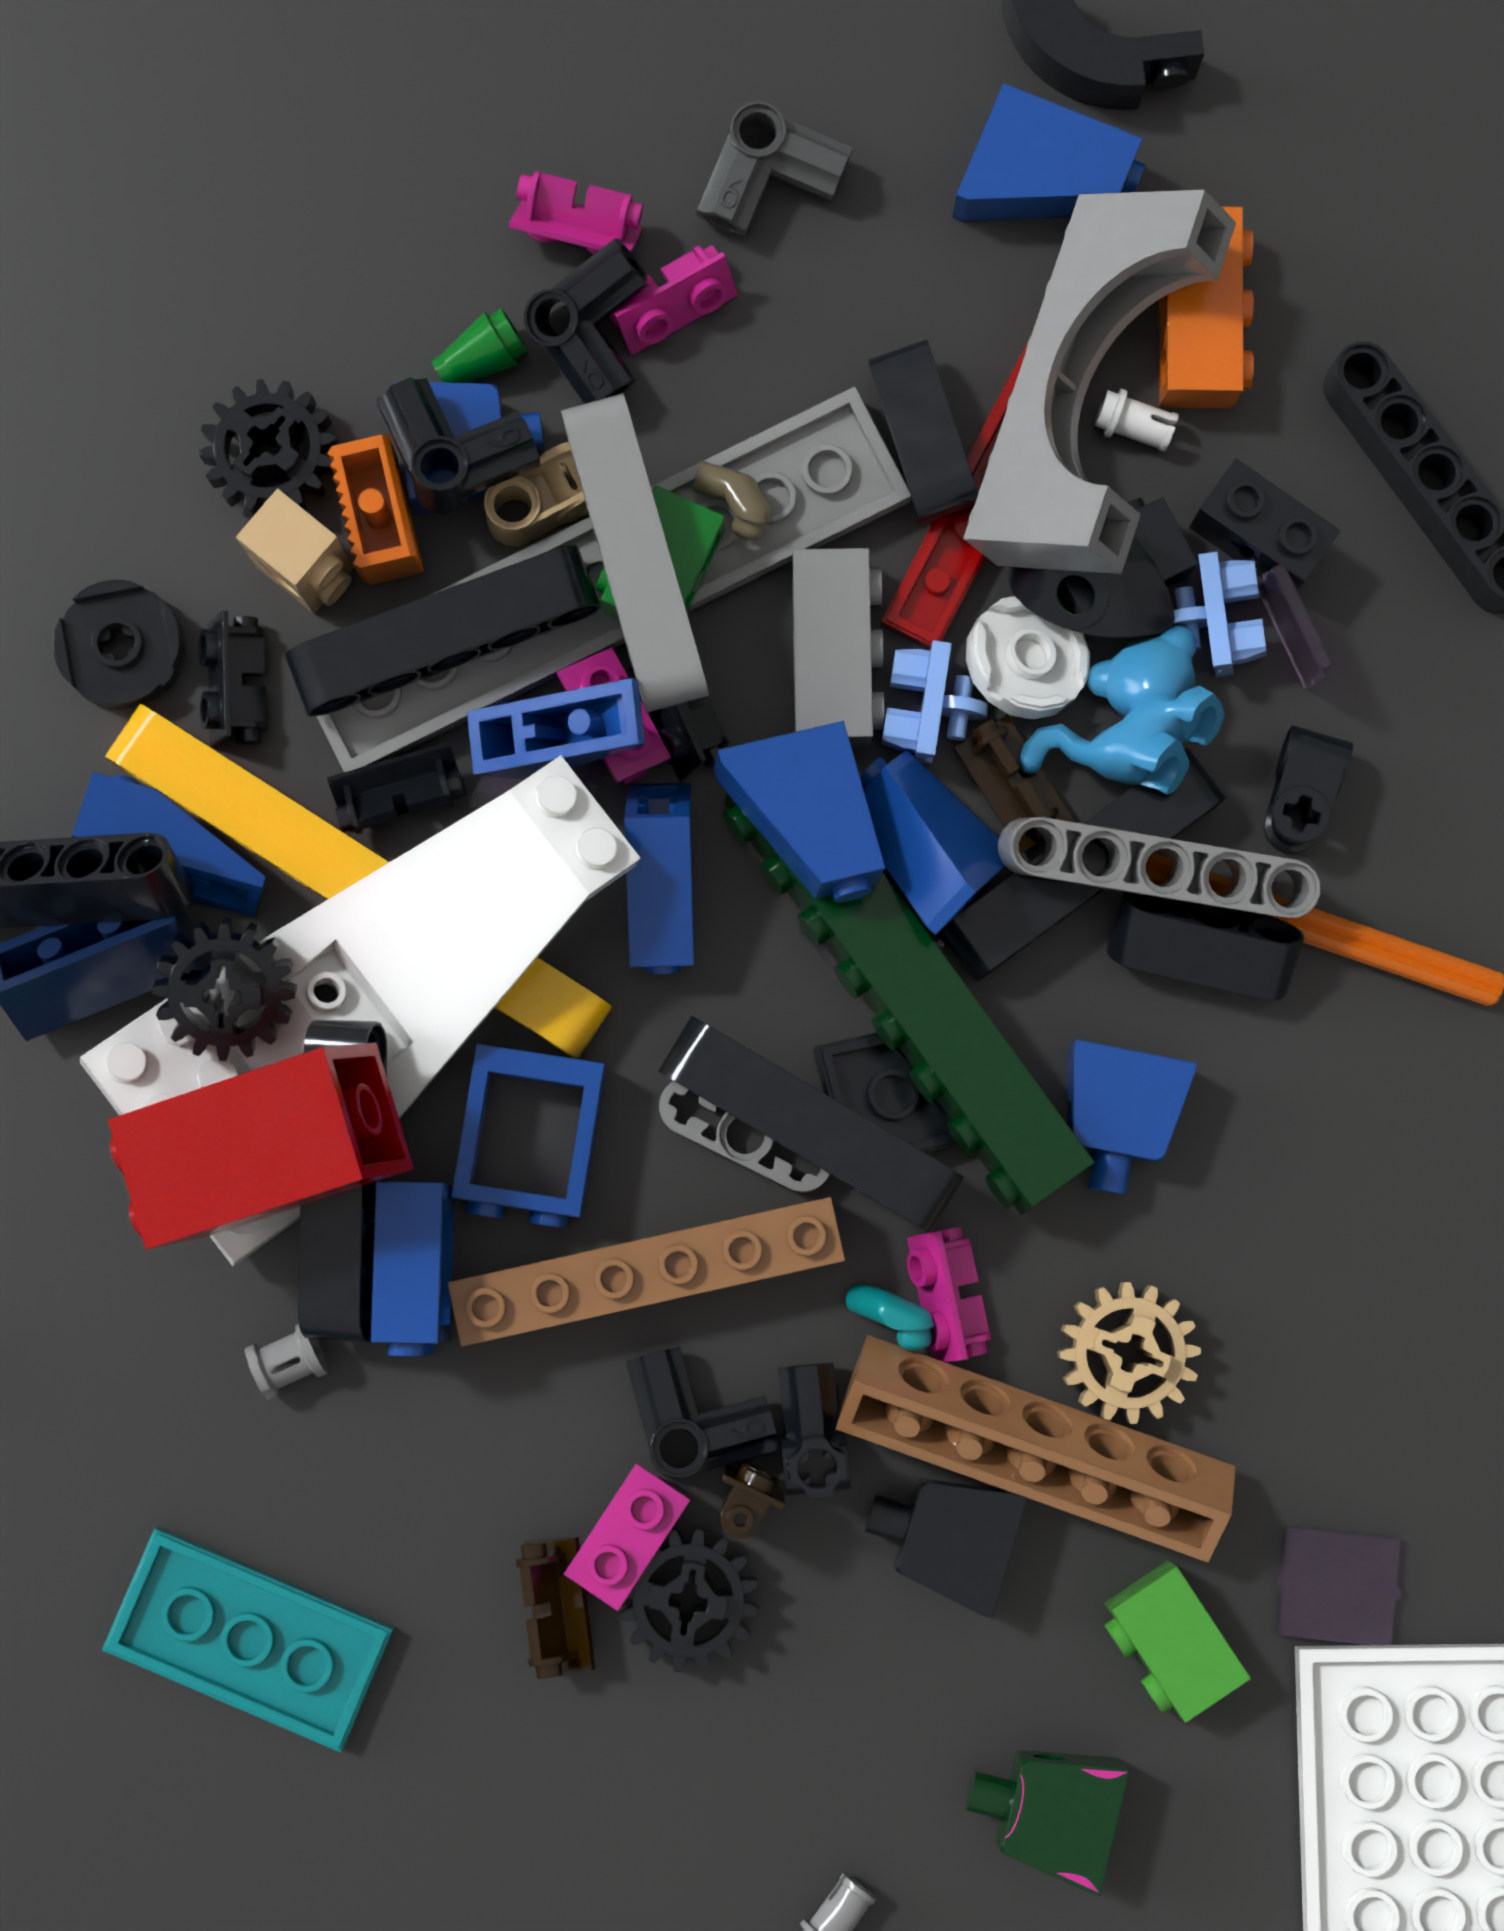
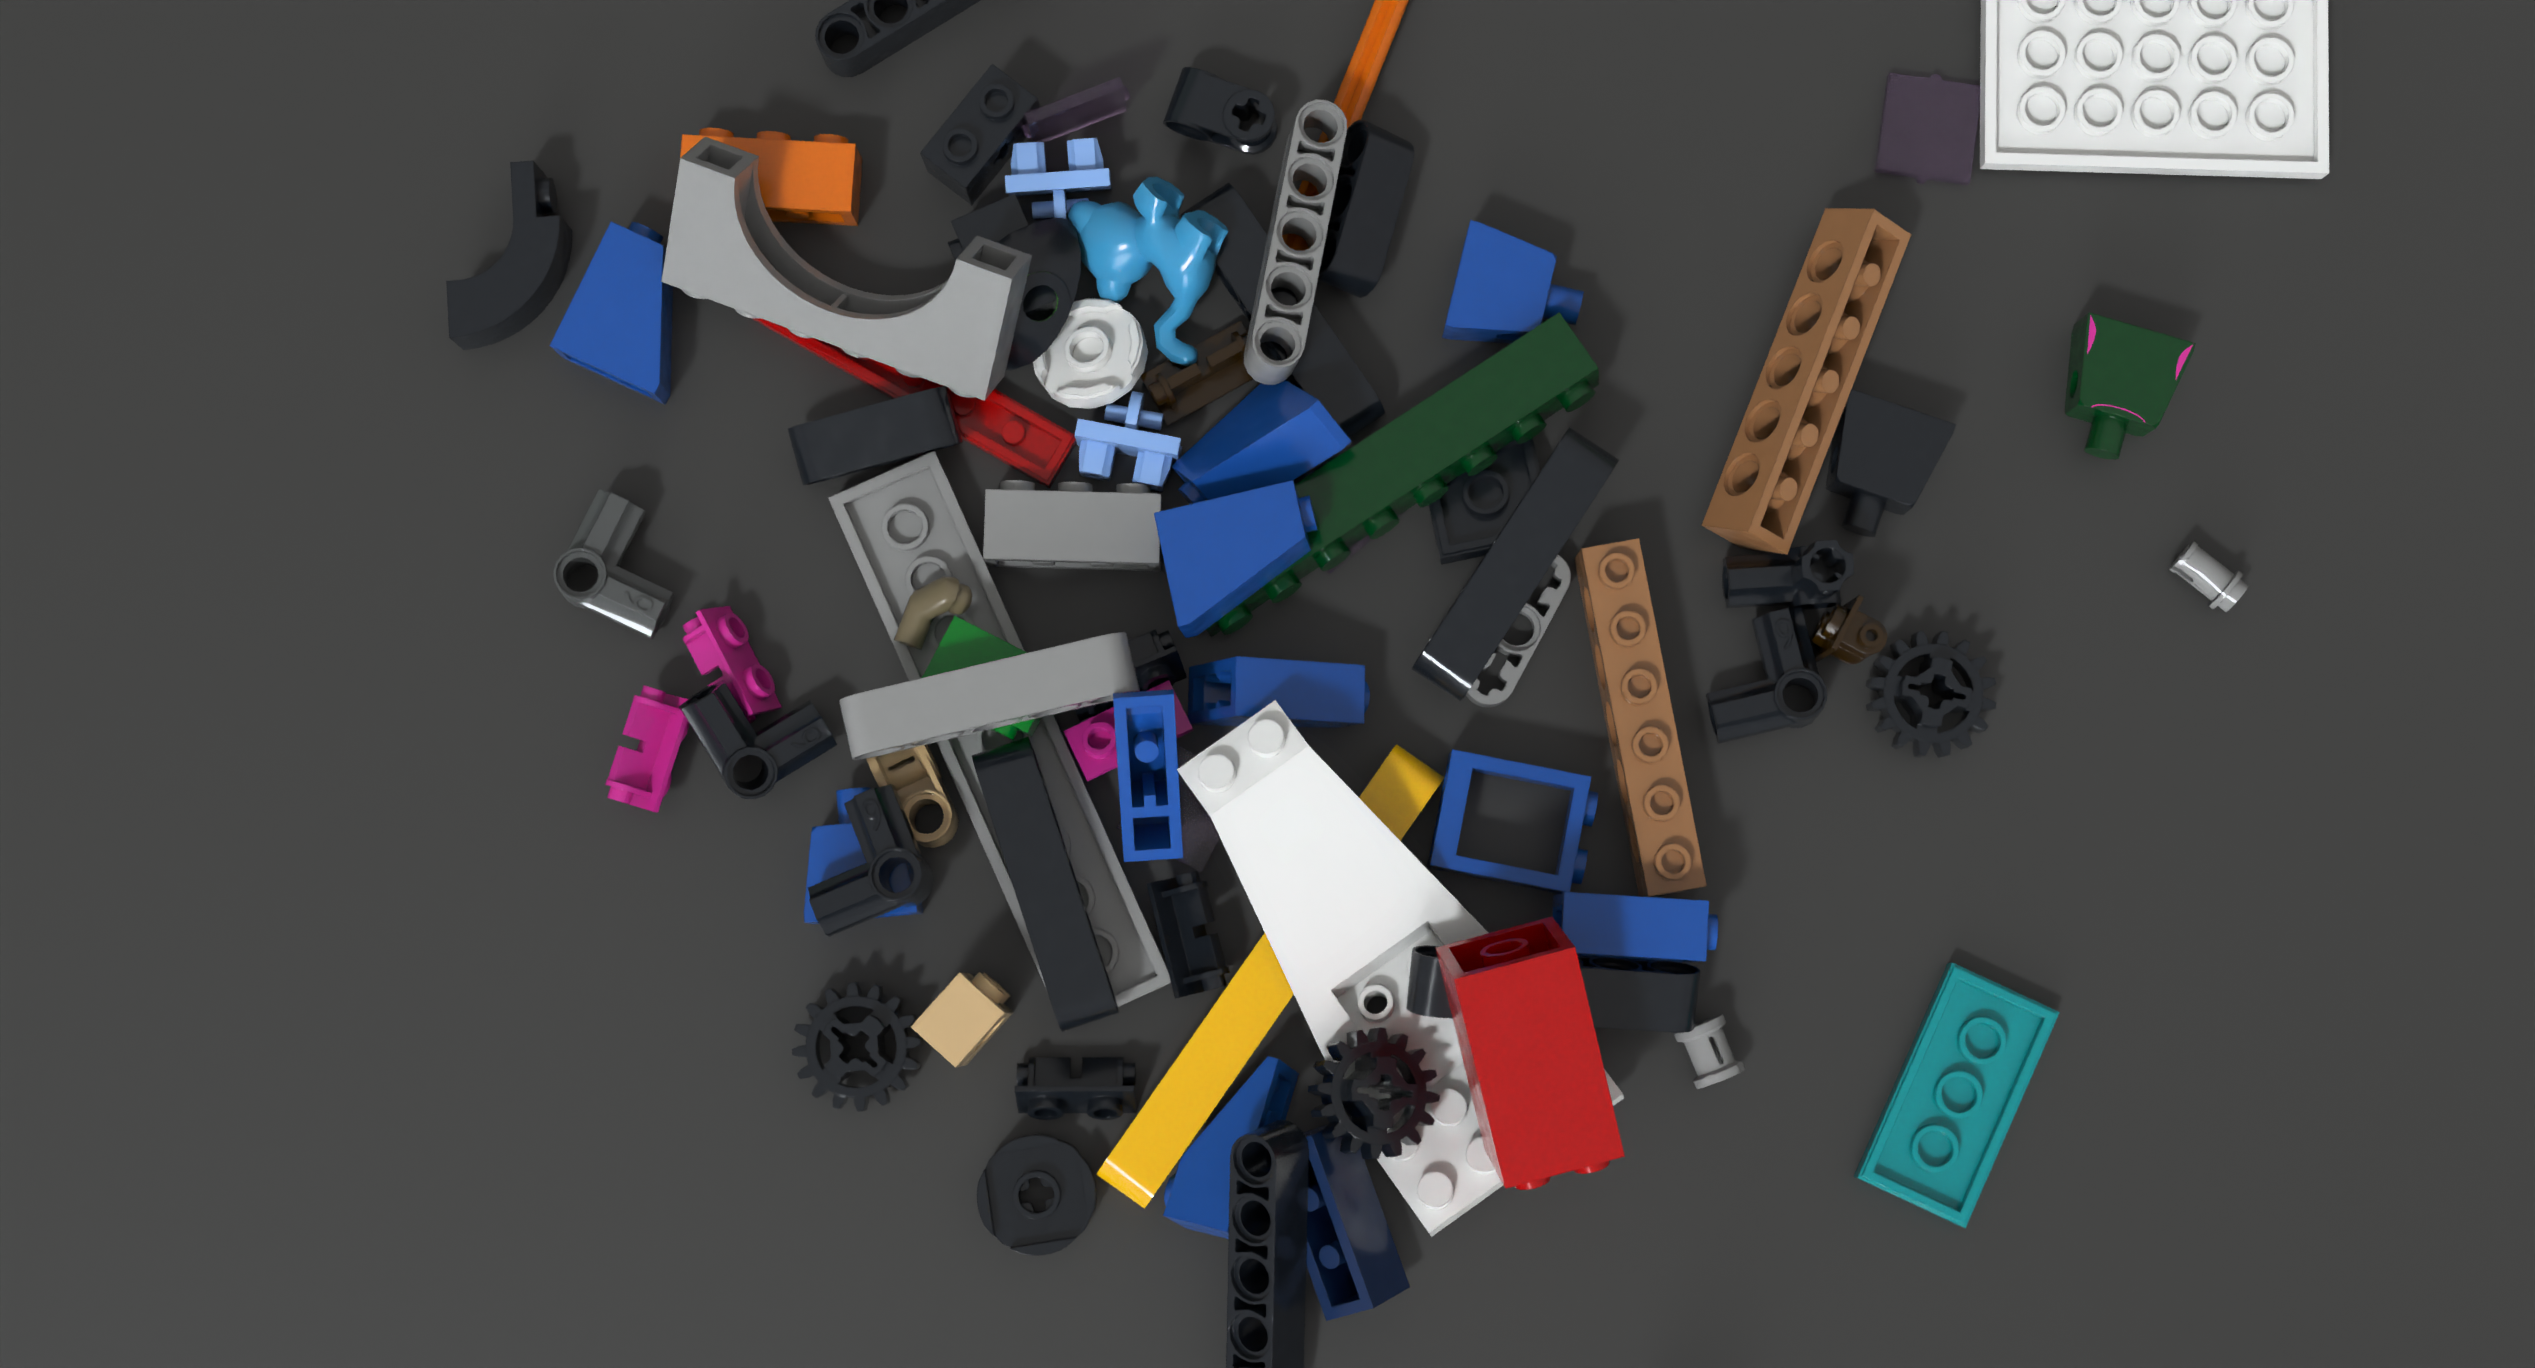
camera: 90 degrees left, 0 degrees up
(375, 509) = (924, 944): orange brick -> none
(481, 350) = (773, 845): green cone -> none
(560, 1621) = (1935, 812): dark brown hinge -> none
(627, 1536) = (1876, 745): dark pink hinge -> none
(894, 1312) = (1683, 497): teal arm -> none
(937, 1267) = (1692, 453): dark pink hinge -> none
(1135, 420) = (871, 245): white pin -> none
(1141, 1324) = (1743, 301): tan gear -> none
(1175, 1641) = (1976, 269): bright green brick -> none

